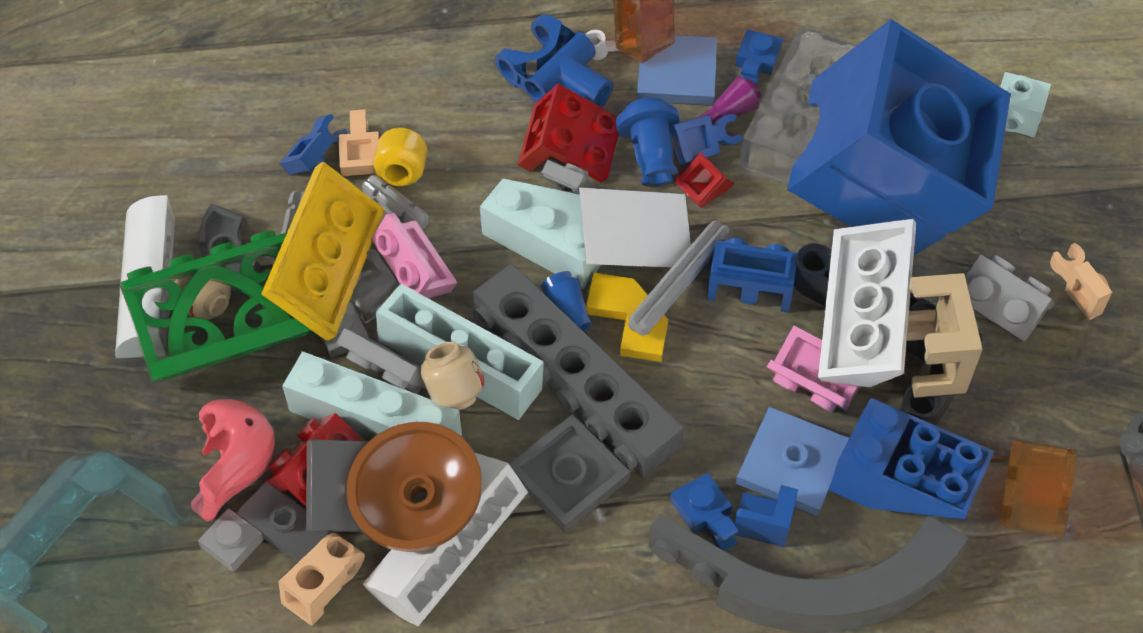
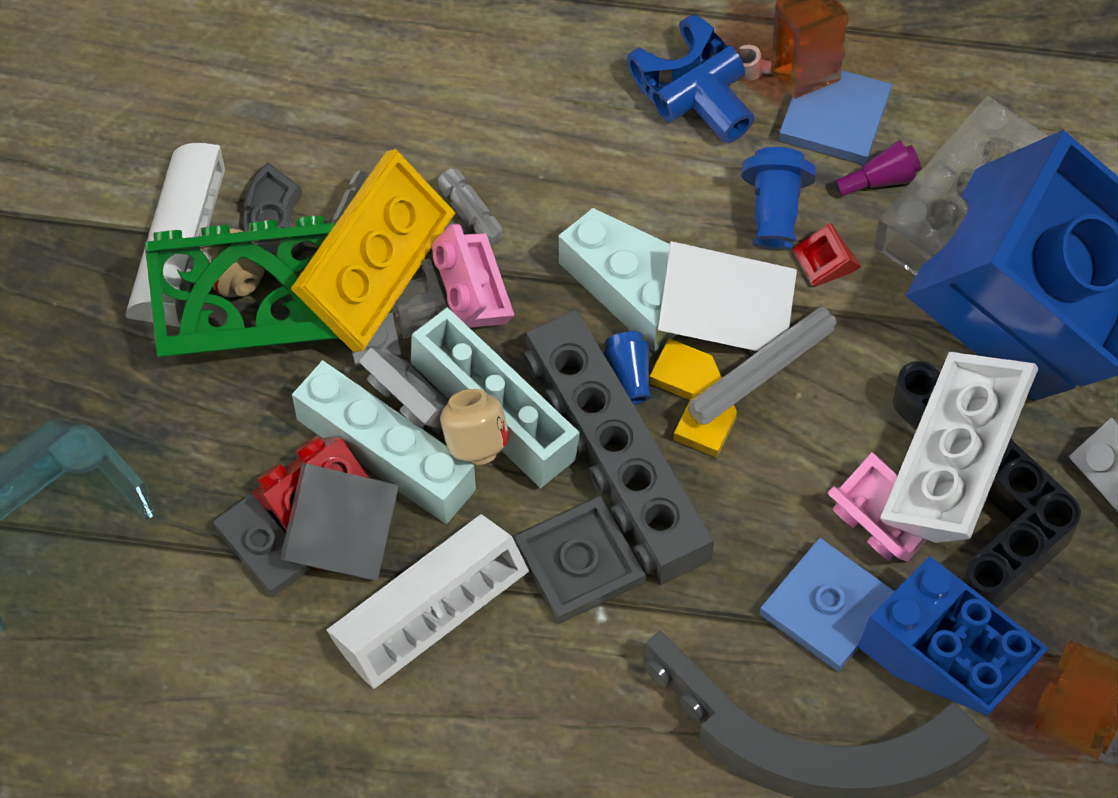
camera: 15 degrees right, 5 degrees up
(230, 540) = (201, 549): light grey plate -> none
(245, 449) = (239, 455): coral piece -> none
(310, 148) = (389, 123): blue plate -> none
(319, 577) = (284, 611): light nougat leg -> none
(359, 147) = (446, 134): light nougat plate -> none
(400, 157) = (488, 154): yellow head -> none
(401, 465) = (386, 517): dark orange dish -> none
(566, 178) = (668, 224): light grey plate -> none
(570, 131) = (688, 167): red bracket -> none
(701, 136) = (836, 204): blue plate -> none
(706, 507) = (716, 634): blue plate -> none
(753, 270) = (841, 390): blue window -> none
(758, 54) = (934, 115): blue plate -> none
(766, 518) = (779, 660): blue panel -> none
(948, 334) = (1036, 516): tan panel -> none

